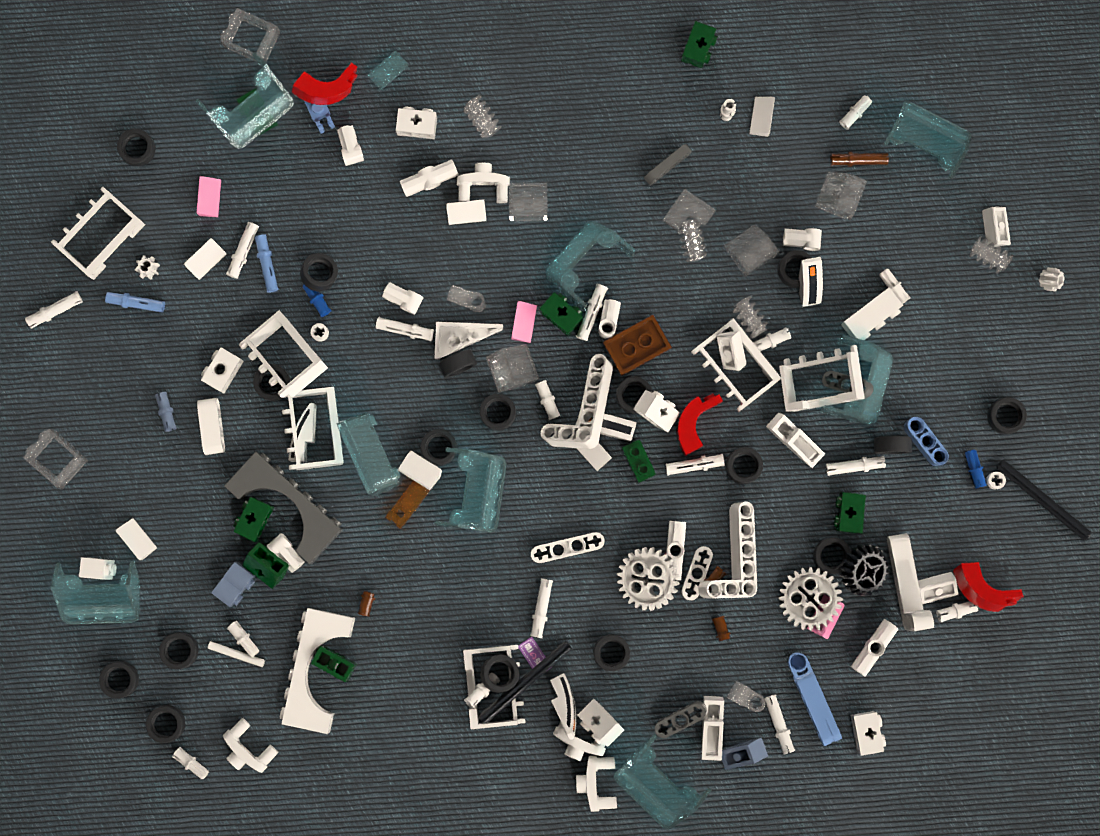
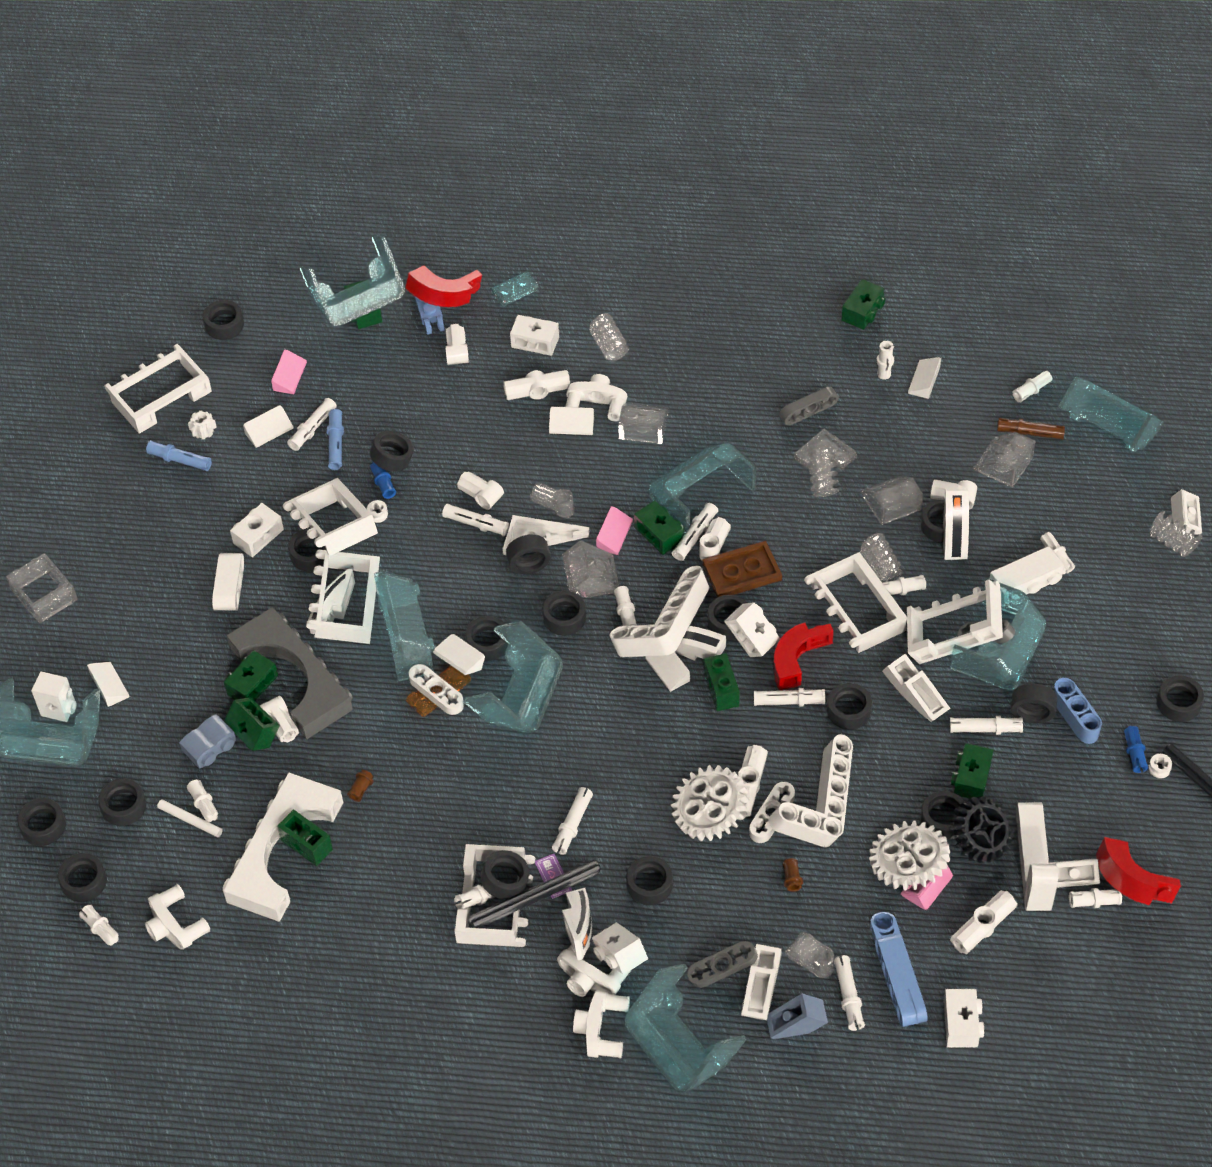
camera: 10 degrees right, 30 degrees down
(49, 312) = (86, 451): white pin -> none
(165, 411) = (180, 561): sand blue pin -> none
(267, 43) = (368, 221): clear window -> none
(399, 496) = (438, 698): none -> white beam
(568, 551) = (618, 766): white beam -> none
(731, 350) = (852, 585): white slope -> none

